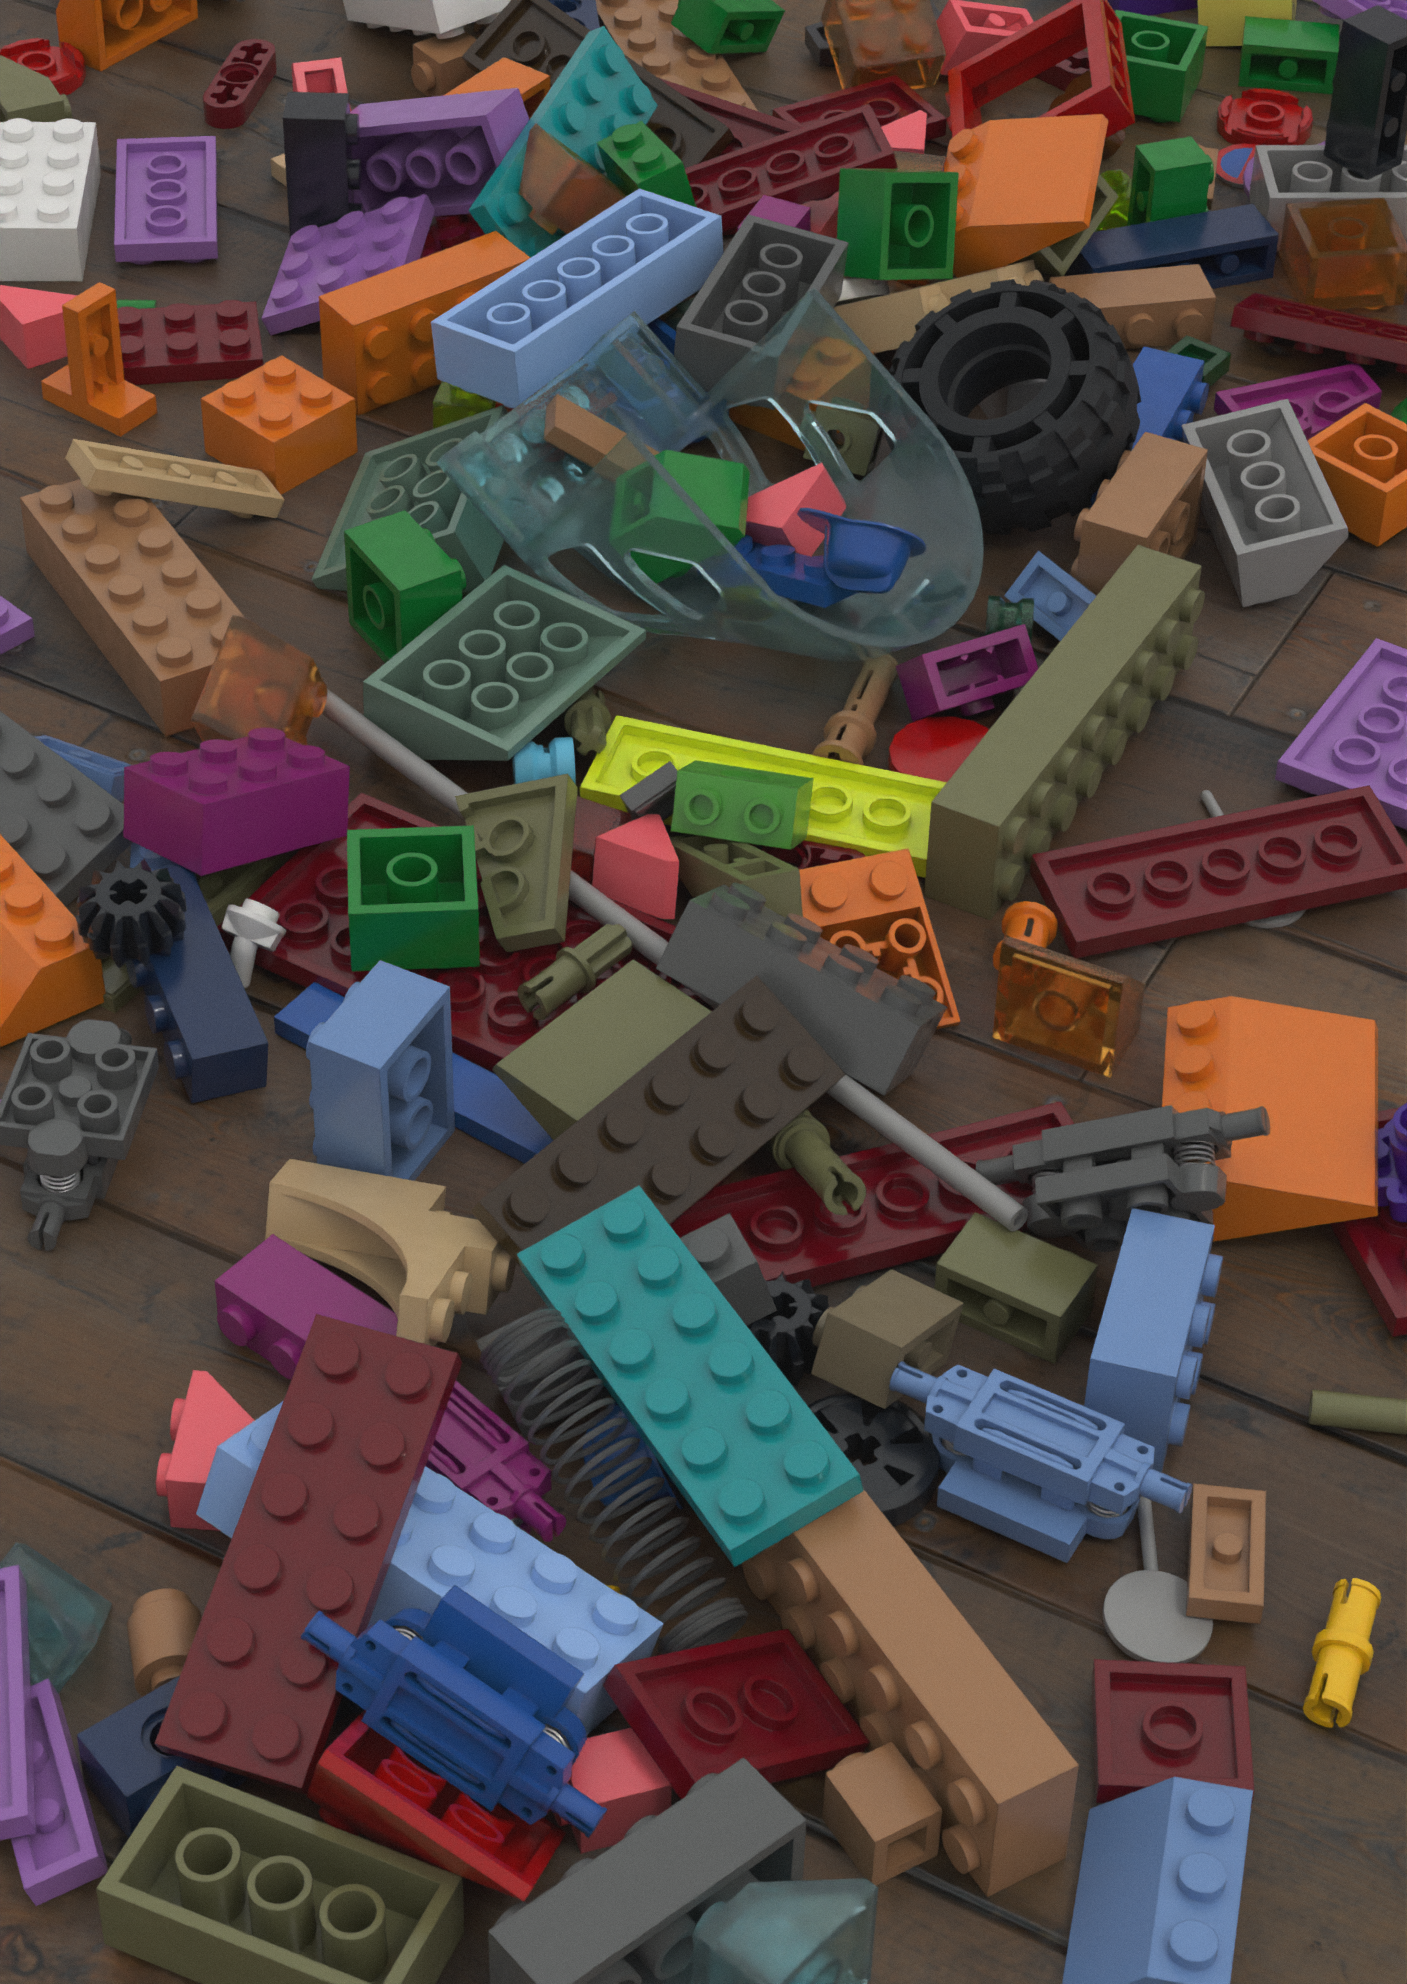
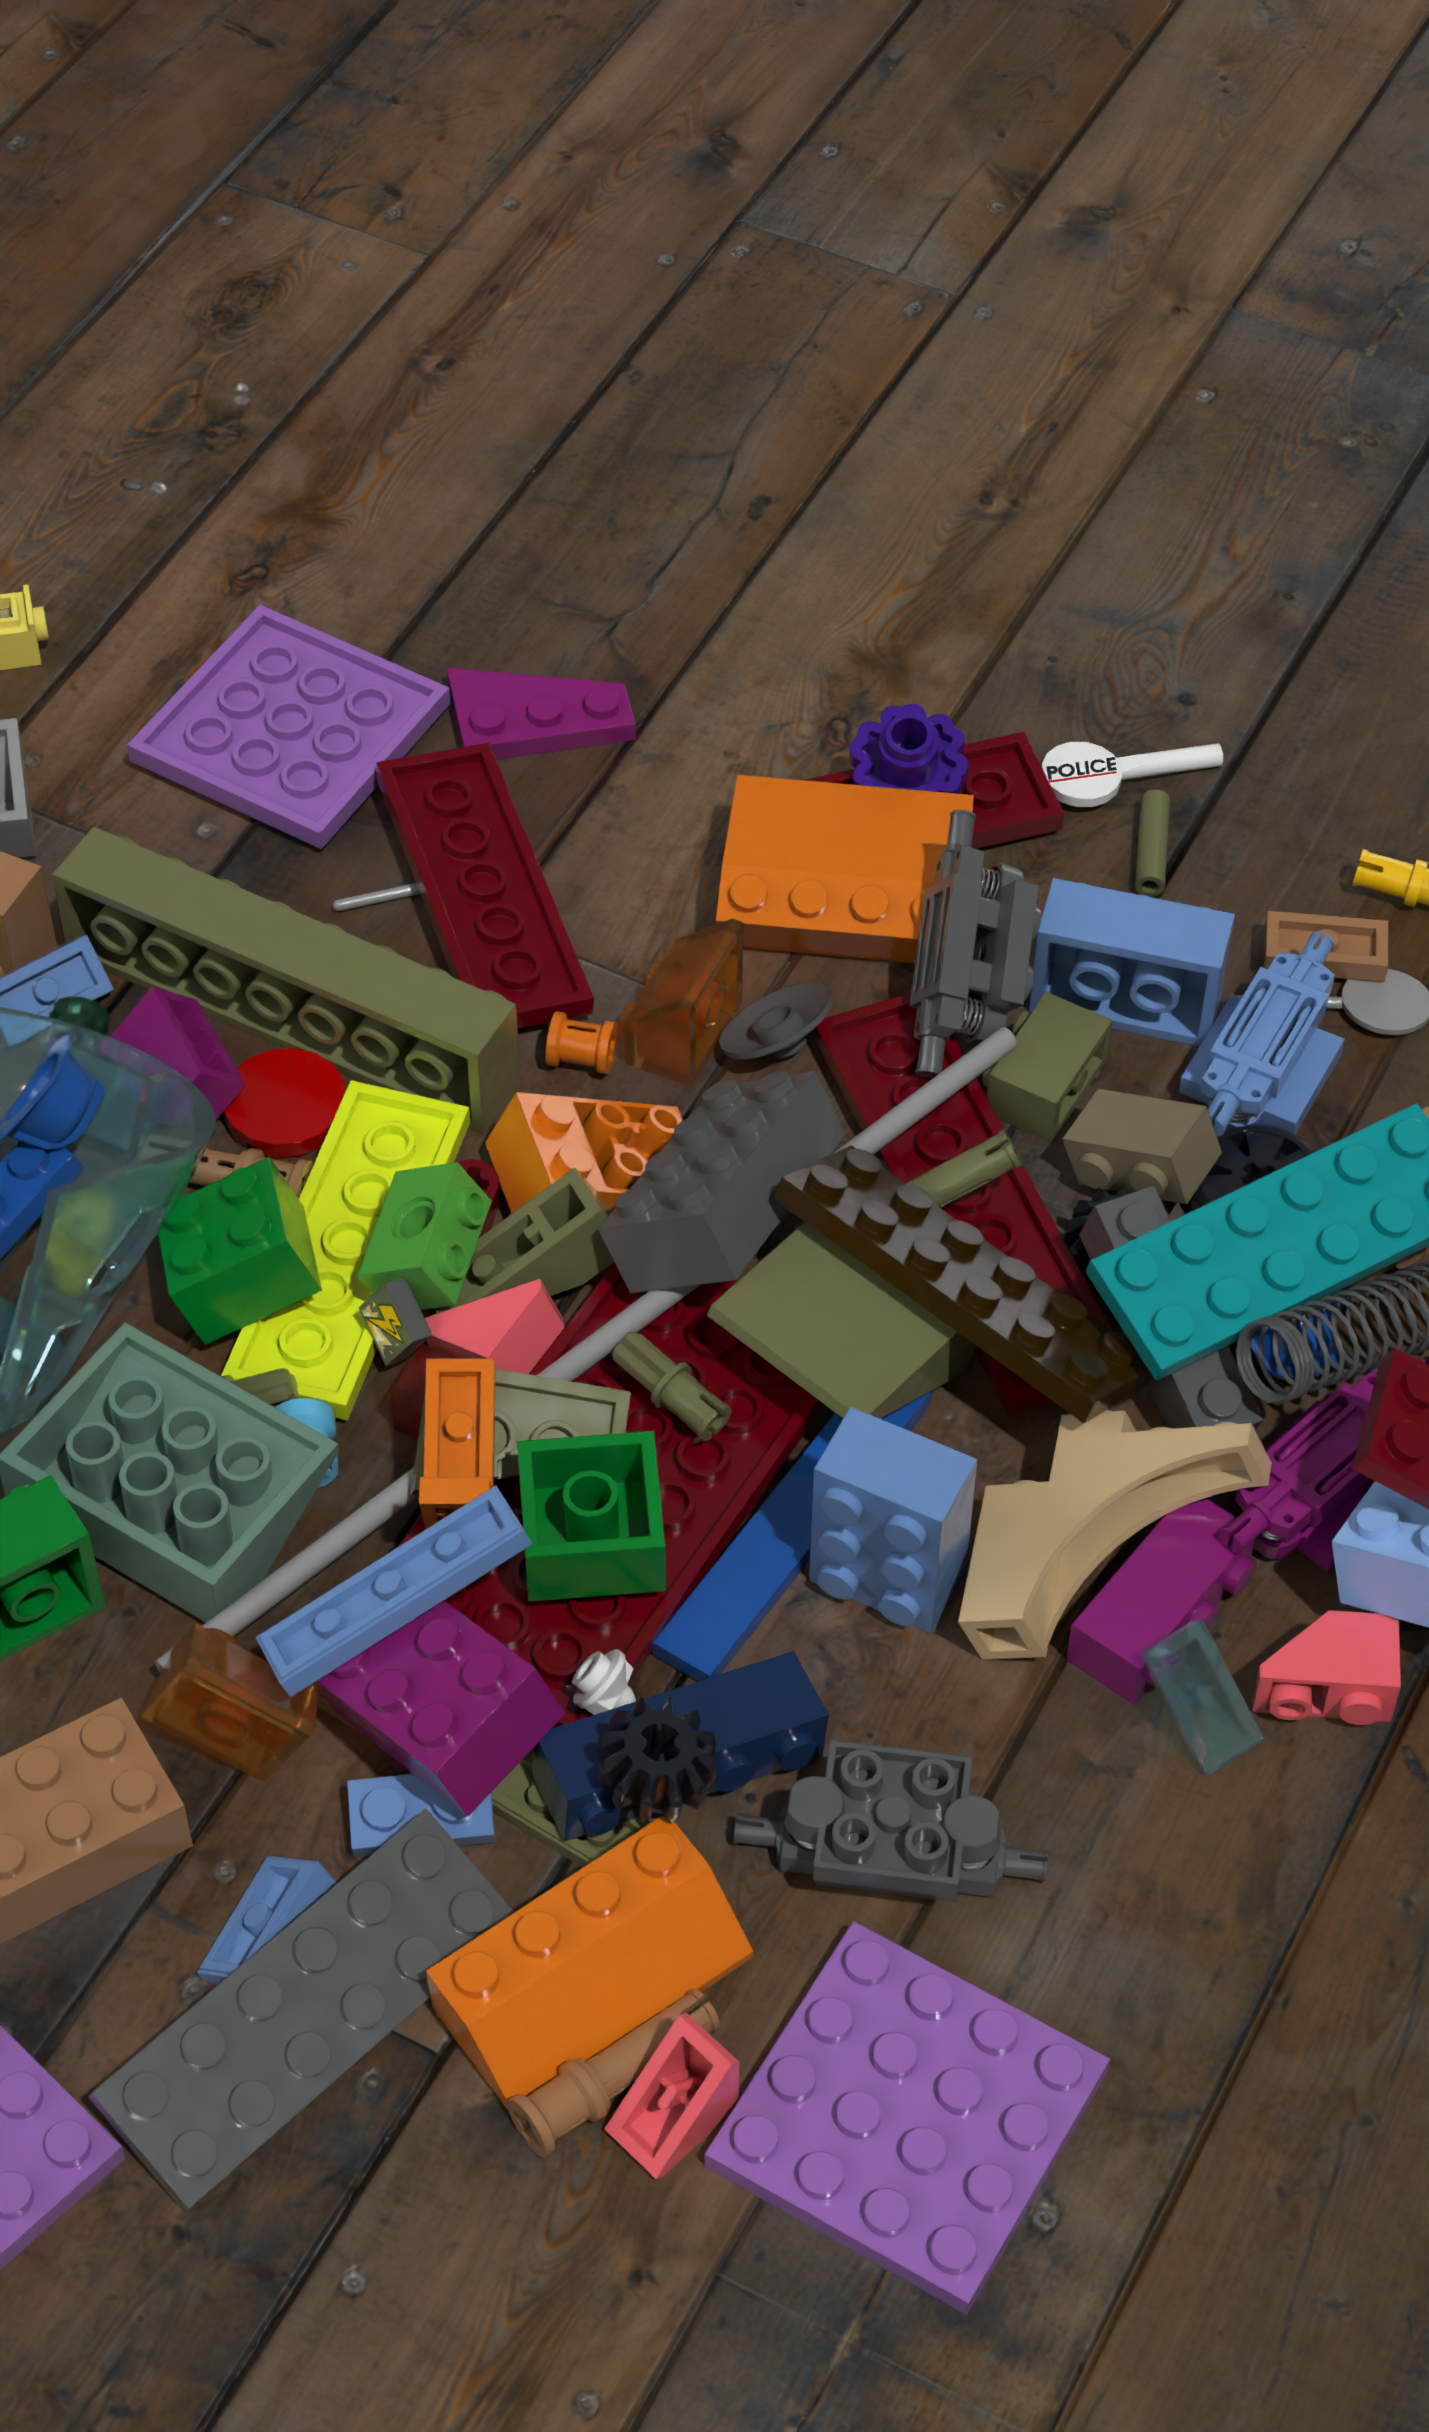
camera: 90 degrees left, 10 degrees up
(202, 1333) = (1202, 1696): none -> clear light blue slope
(311, 743) = (393, 1591): none -> medium blue tile
(471, 794) = (457, 1435): none -> orange bracket
(735, 699) = (238, 1251): none -> green brick
(1056, 1077) = (777, 1022): none -> dark grey dish

